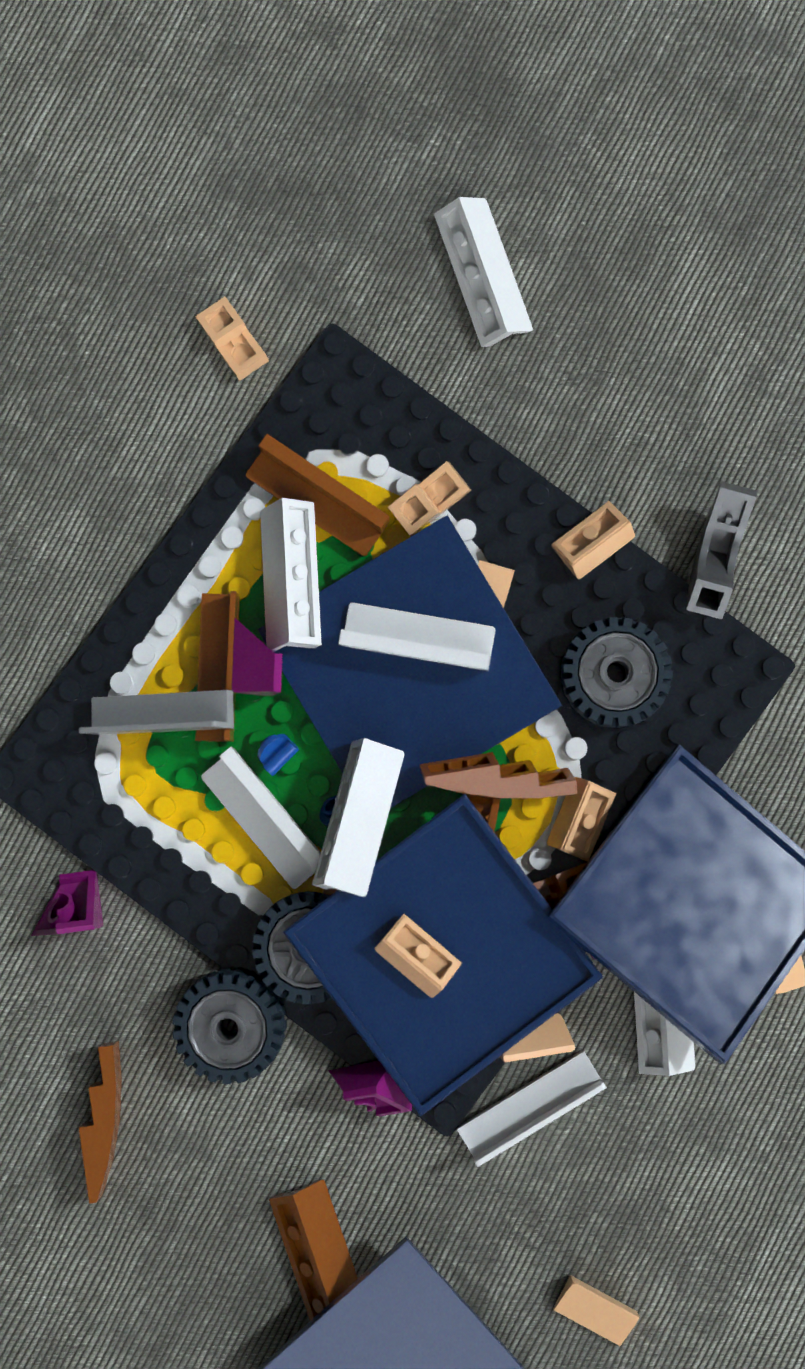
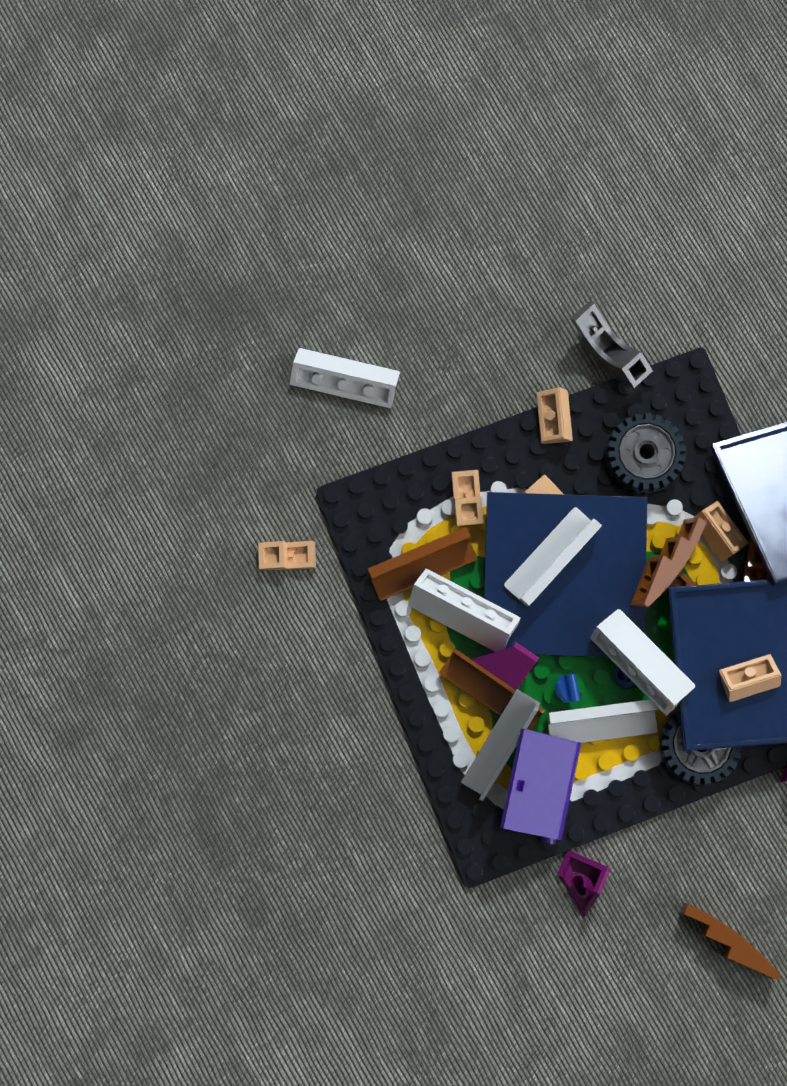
camera: 65 degrees left, 5 degrees down
(137, 787) = (541, 785): none -> door
(210, 1046) = (736, 835): wheel -> none

